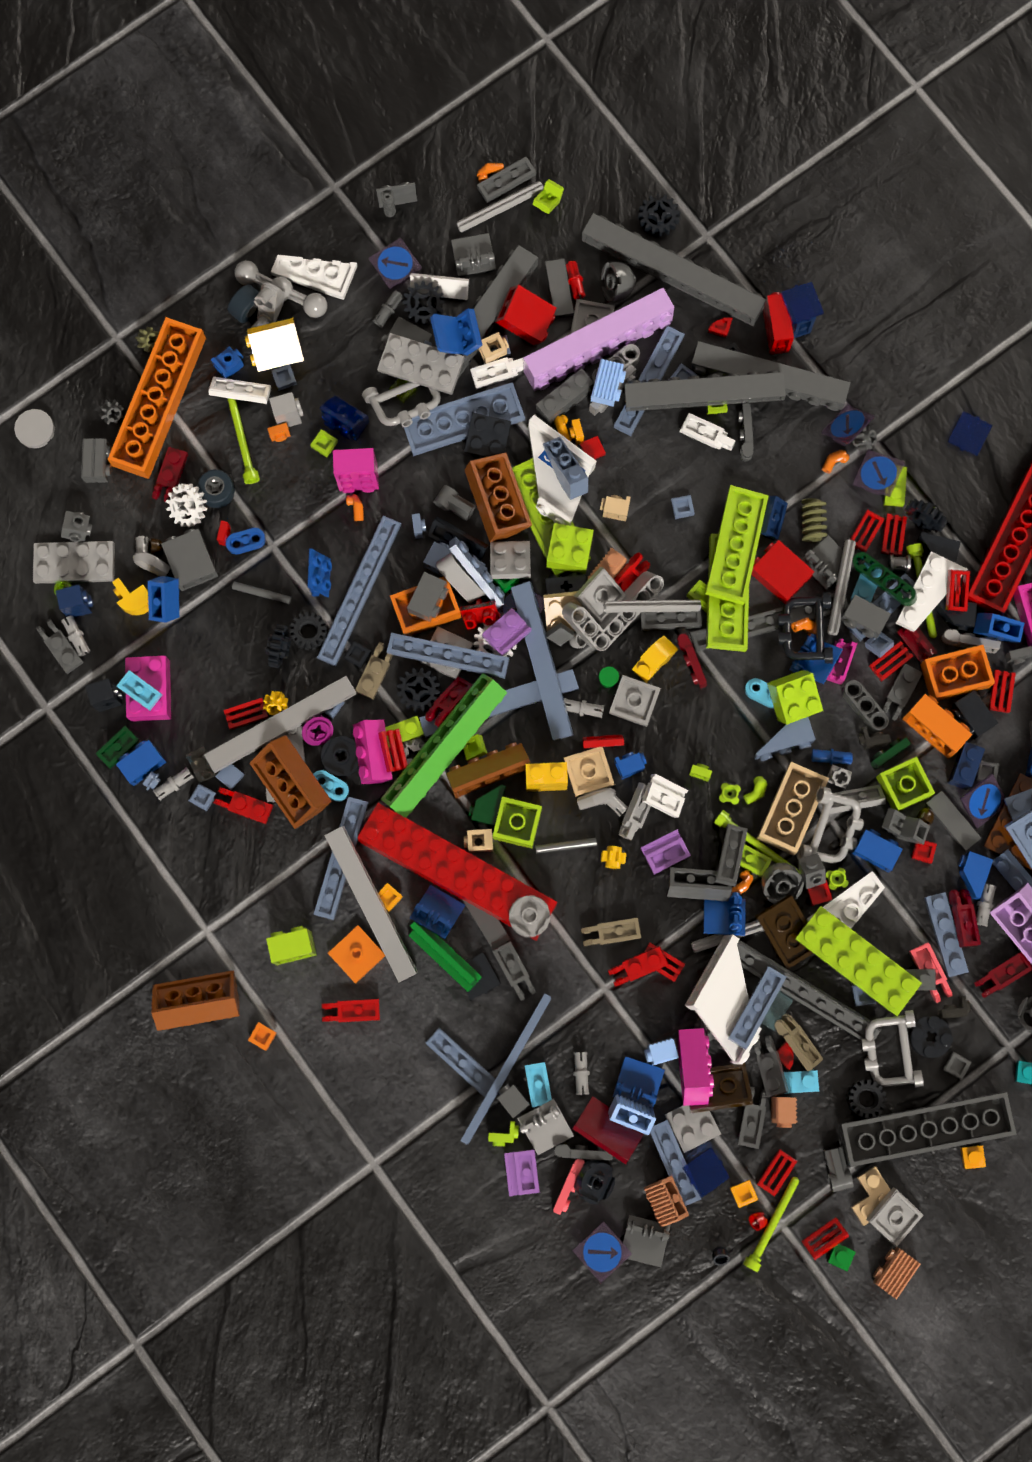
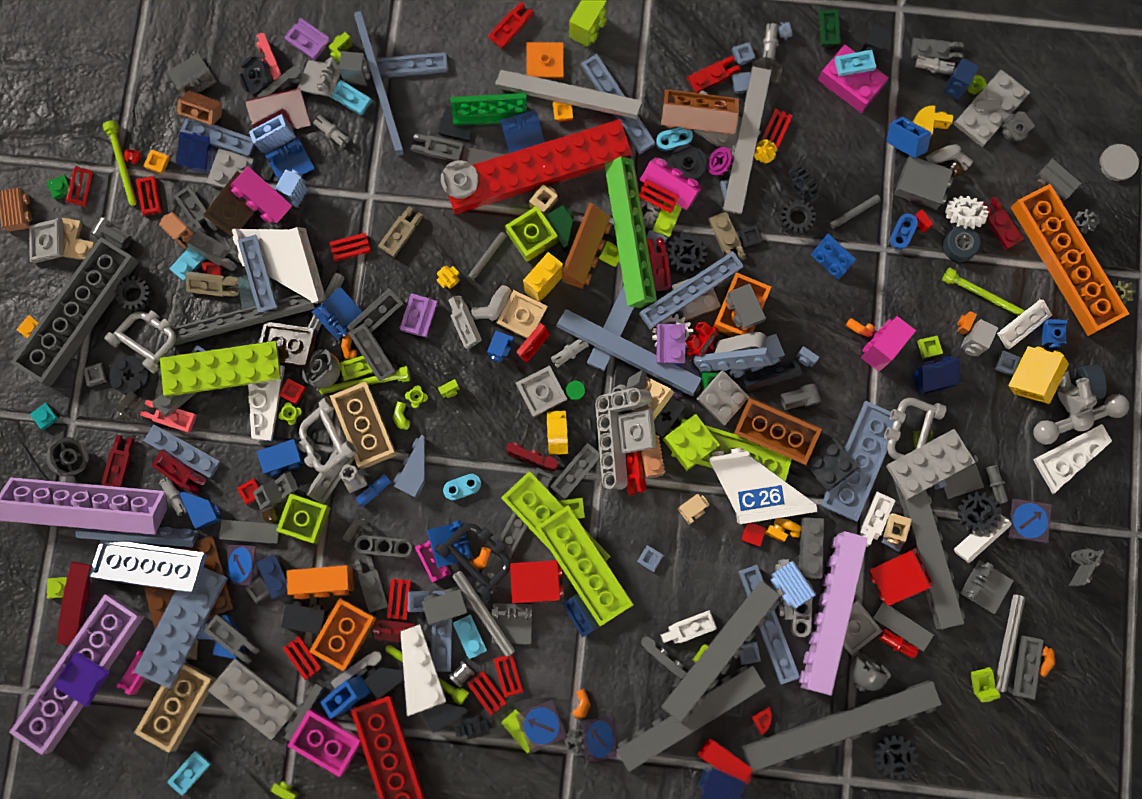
camera: 130 degrees right, 0 degrees up
(140, 762) = (804, 33): blue brick -> none
(359, 591) = (796, 278): sand blue tile -> none
(456, 334) = (932, 506): blue bracket -> none
(567, 469) = (755, 494): sand blue slope -> none
(602, 1252) = (210, 43): piece -> none
(640, 965) = (361, 228): red hinge -> none
(651, 606) = (595, 460): light grey axle -> none
(664, 795) = (456, 348): white plate -> none
(720, 1256) = (136, 113): black hinge -> none
(795, 697) = (436, 500): lime brick -> none
(812, 871) = (309, 397): dark grey brick -> none
(813, 519) = (550, 642): olive piece -> none
(886, 576) = (458, 644): dark green beam -> none
(896, 747) = (335, 540): dark green plate -> none
(954, 578) = (410, 703): red tile -> none

